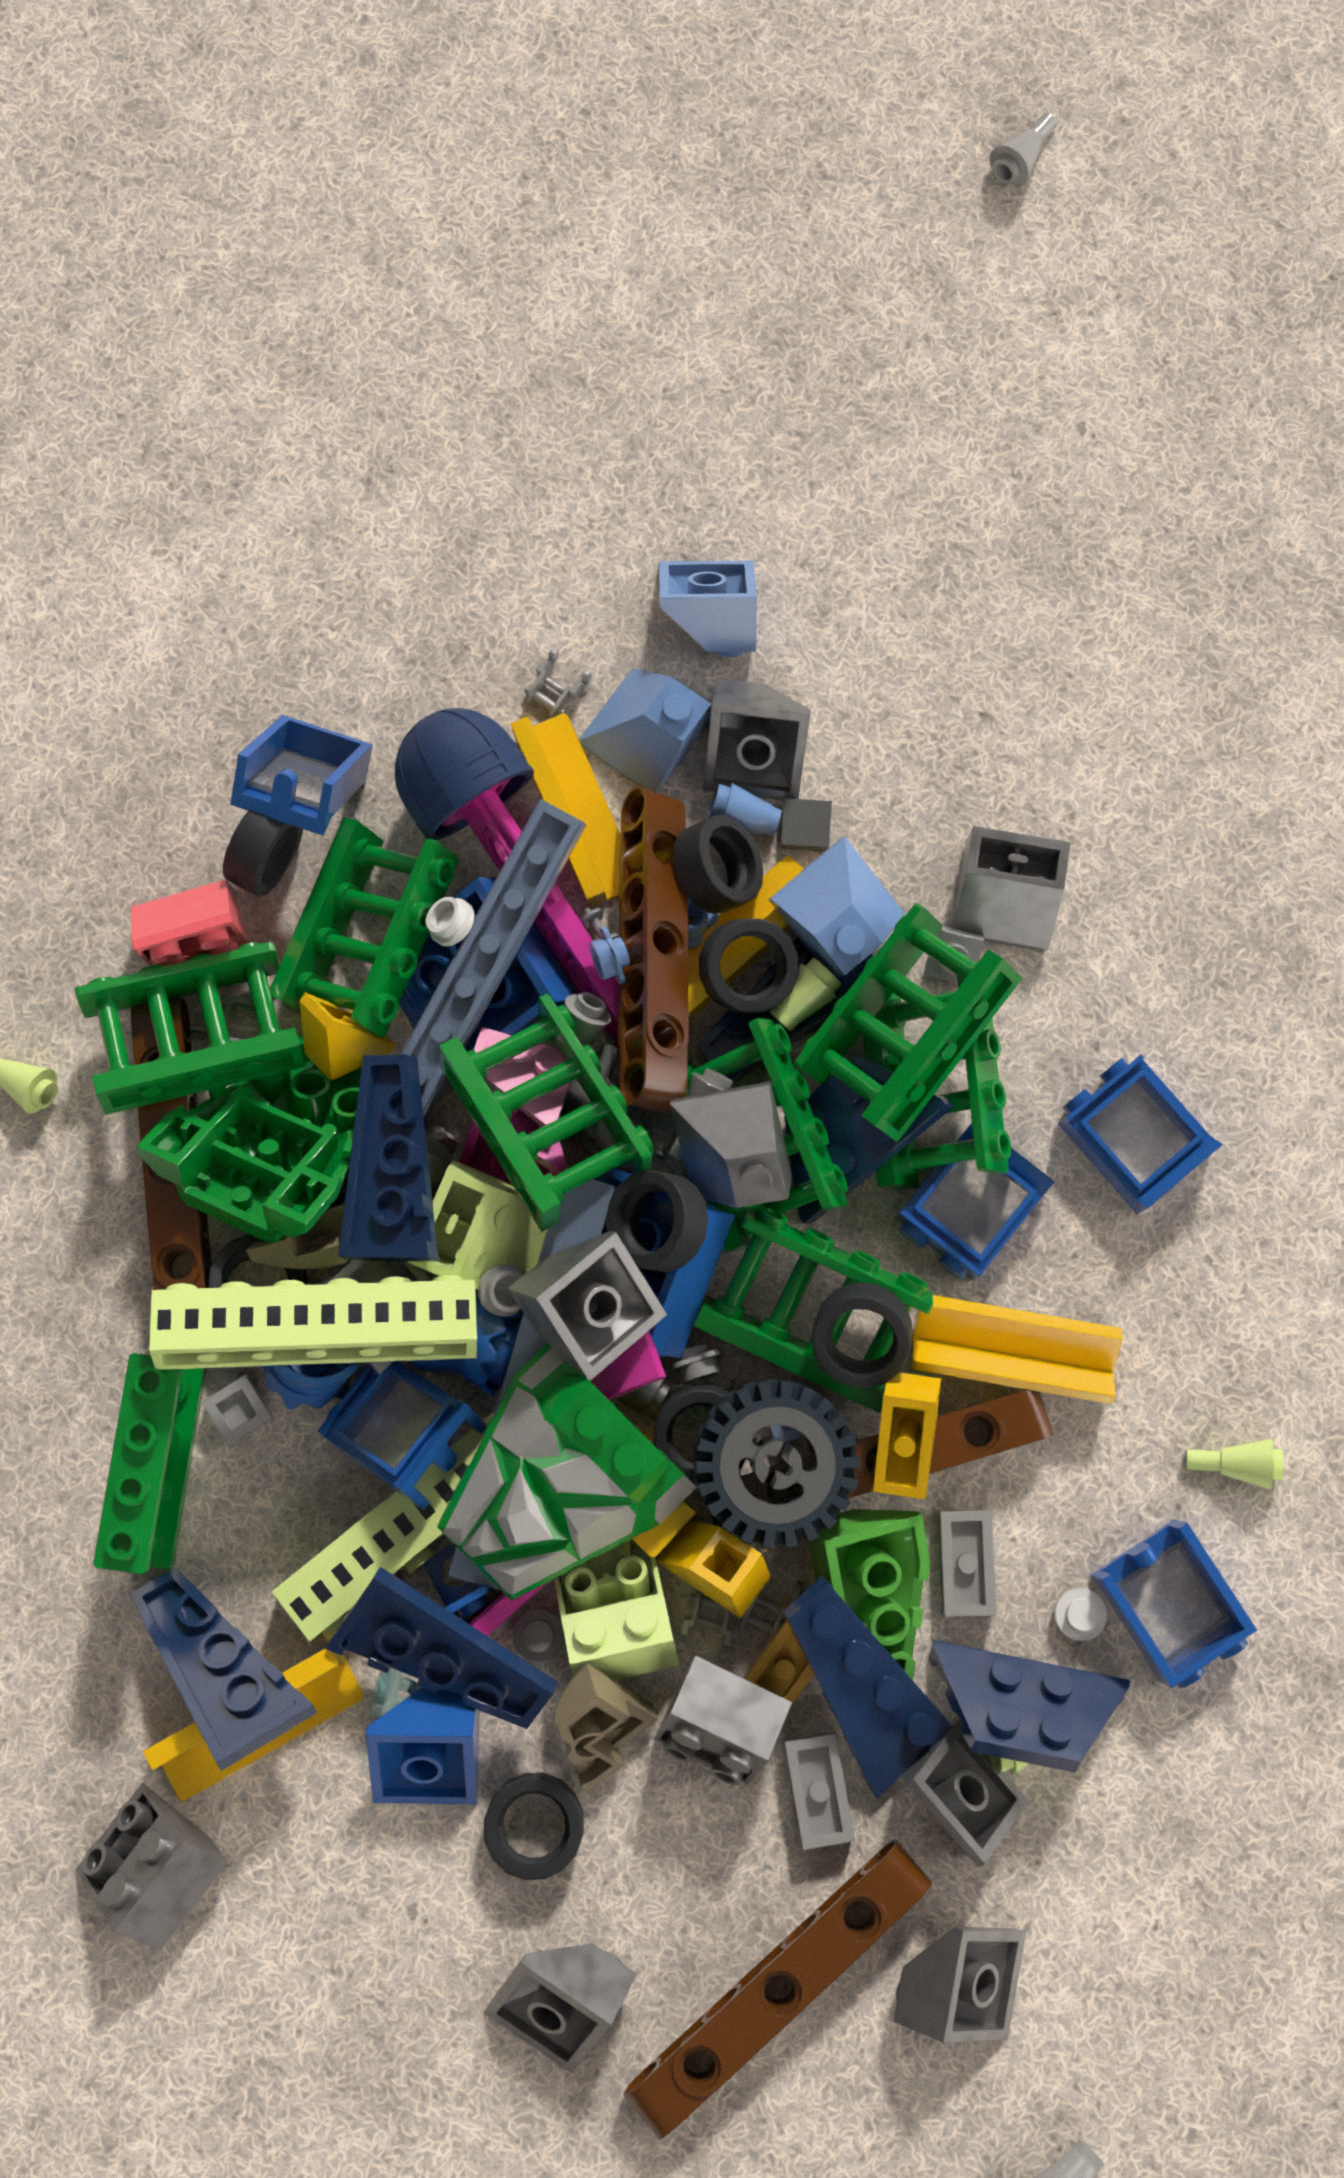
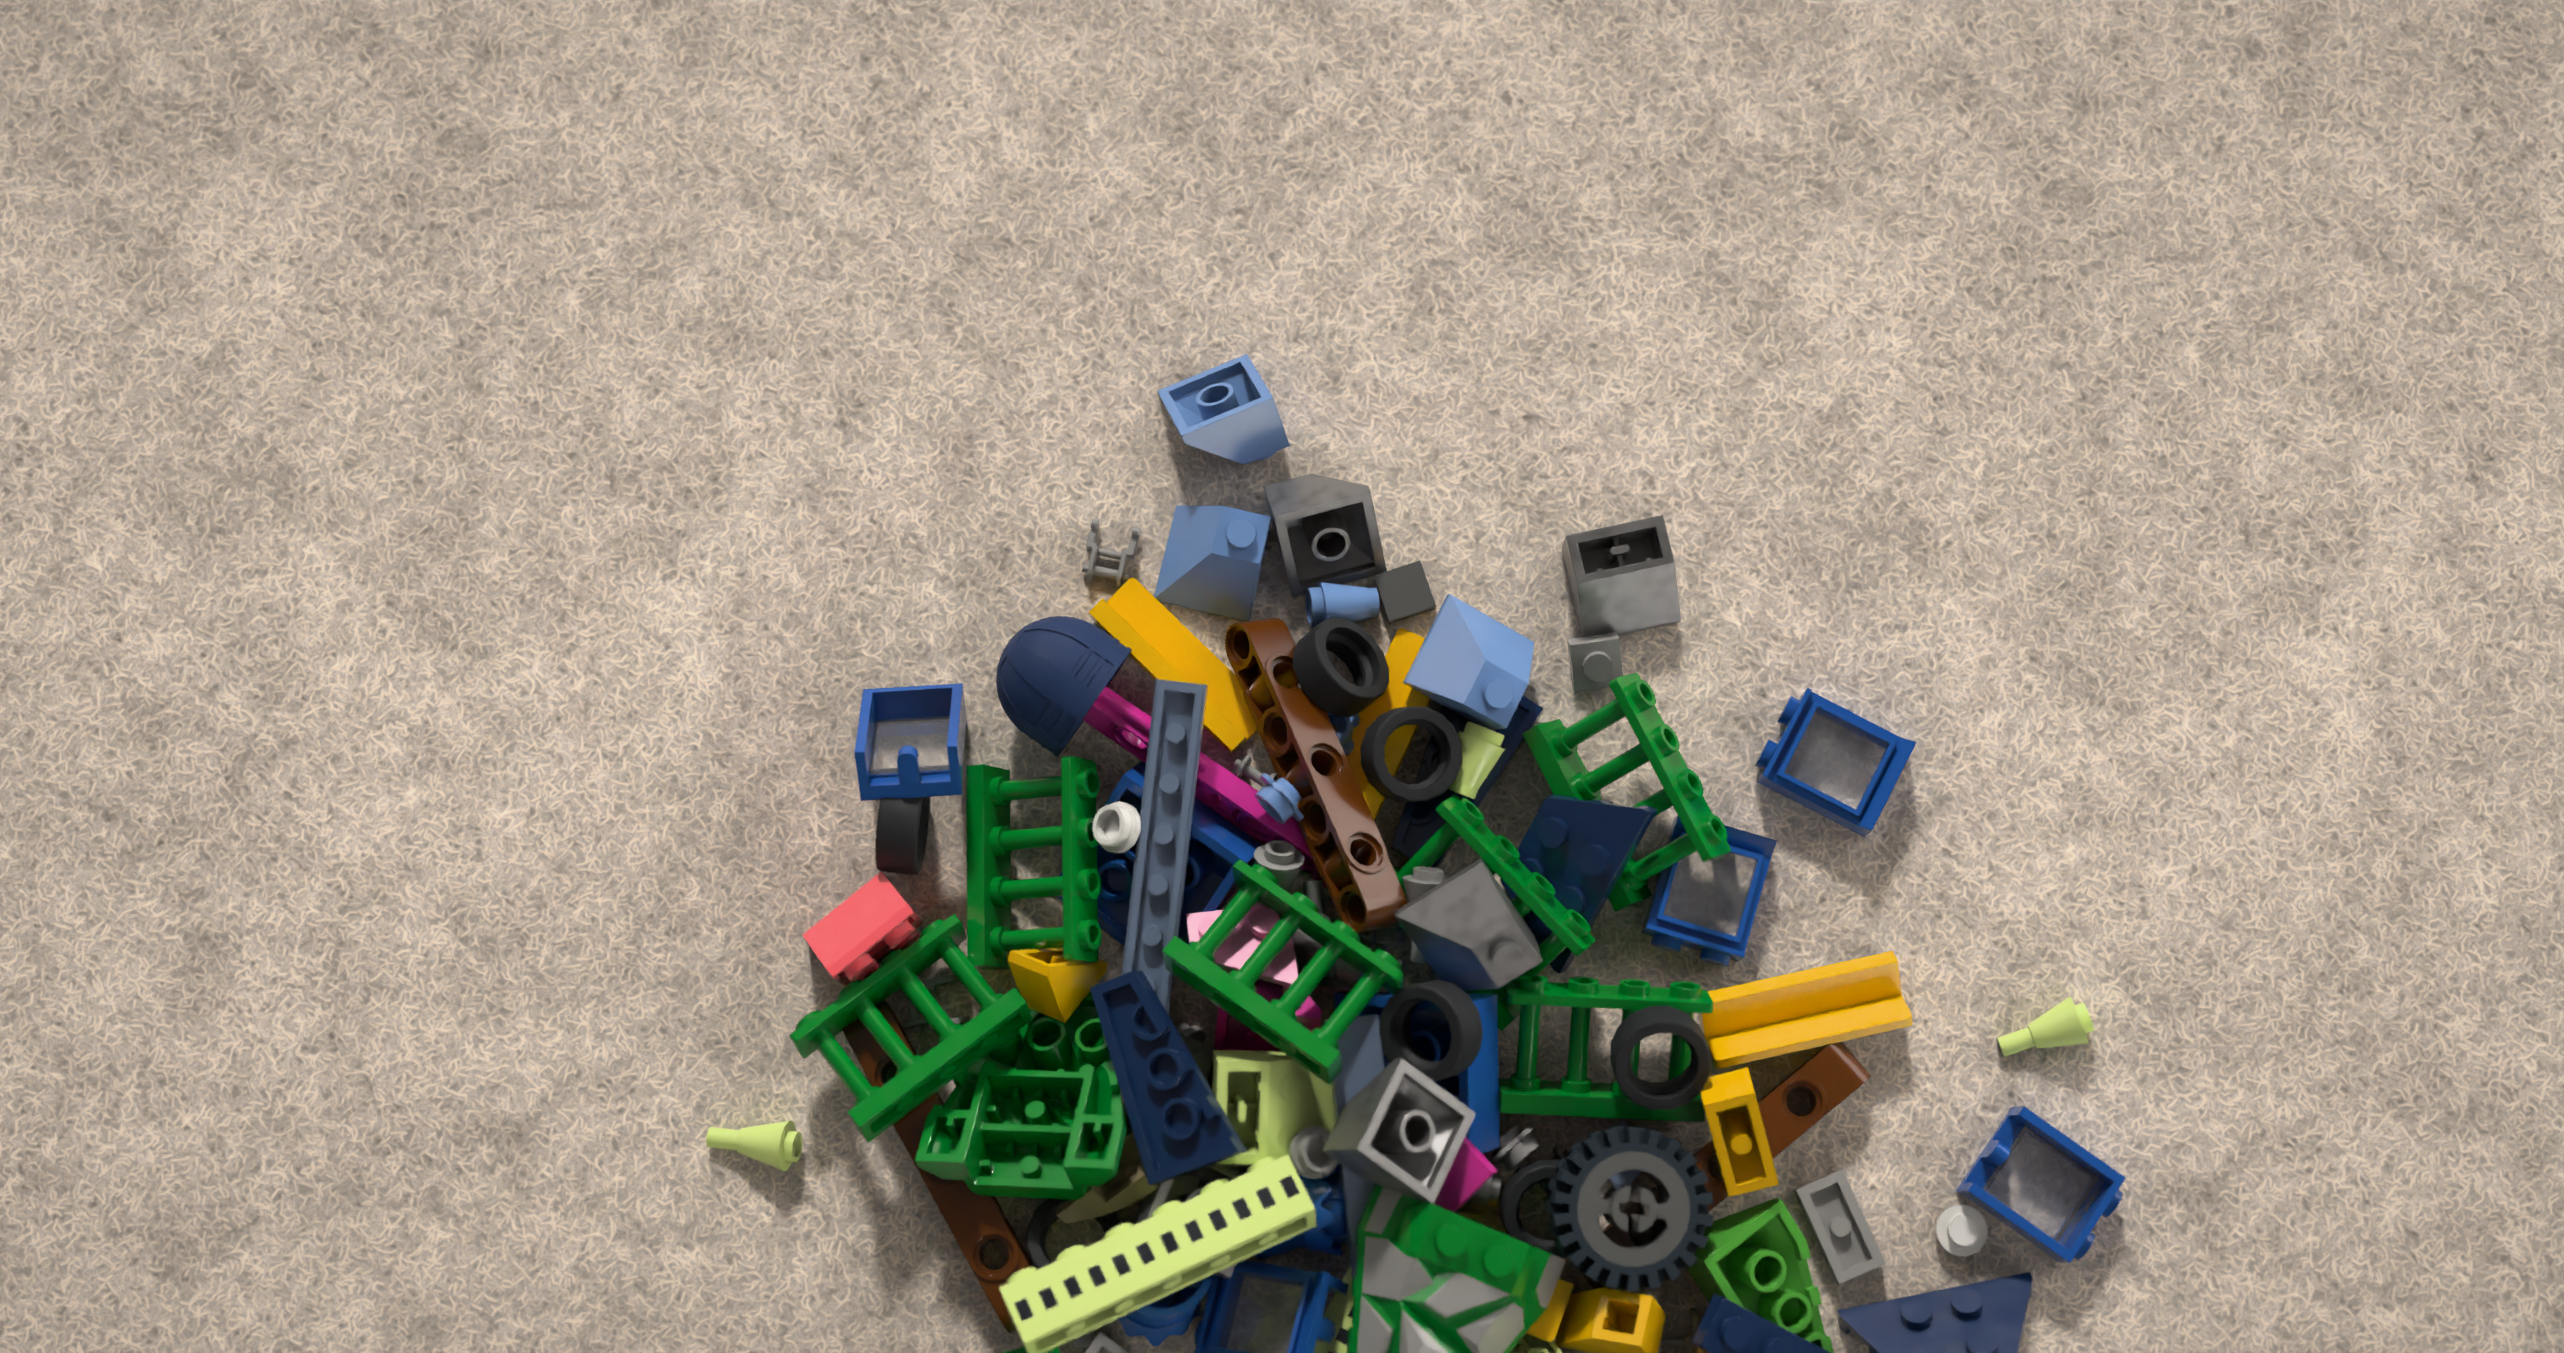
camera: 20 degrees left, 0 degrees up
(940, 1047) = (1624, 764): green fence -> none

